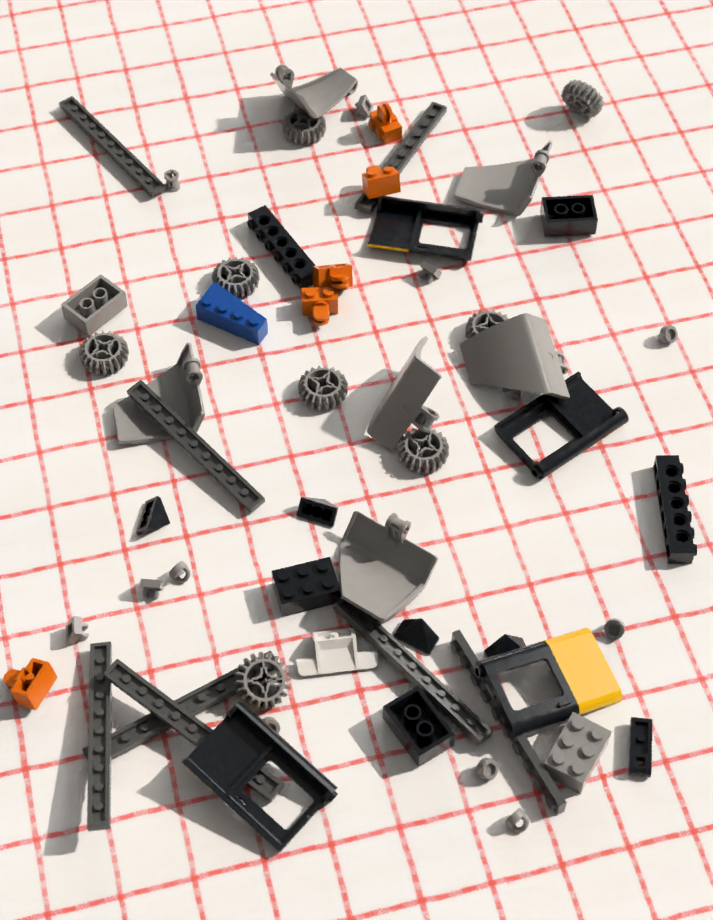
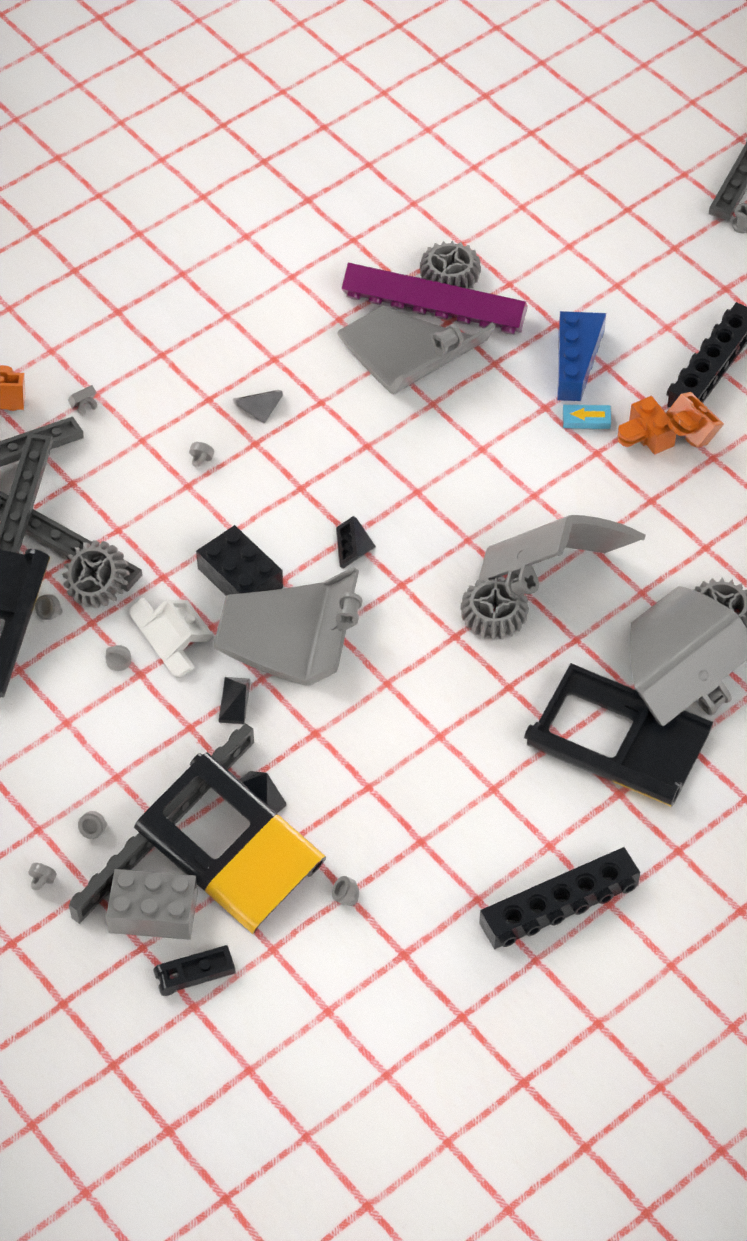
camera: 65 degrees right, 0 degrees up
(94, 305) = (507, 229): light grey brick -> none
(127, 373) = (434, 297): none -> magenta brick
(151, 584) = (170, 437): light grey tile -> none
(196, 446) = (368, 398): dark grey plate -> none
(234, 272) = (649, 330): light grey gear -> none
(286, 334) = (587, 416): none -> medium azure tile
(323, 391) = (539, 474): light grey gear -> none
(340, 698) = (118, 657): none -> light grey tile
(415, 672) = (173, 728): dark grey plate -> none
(418, 726) = (110, 736): black brick -> none

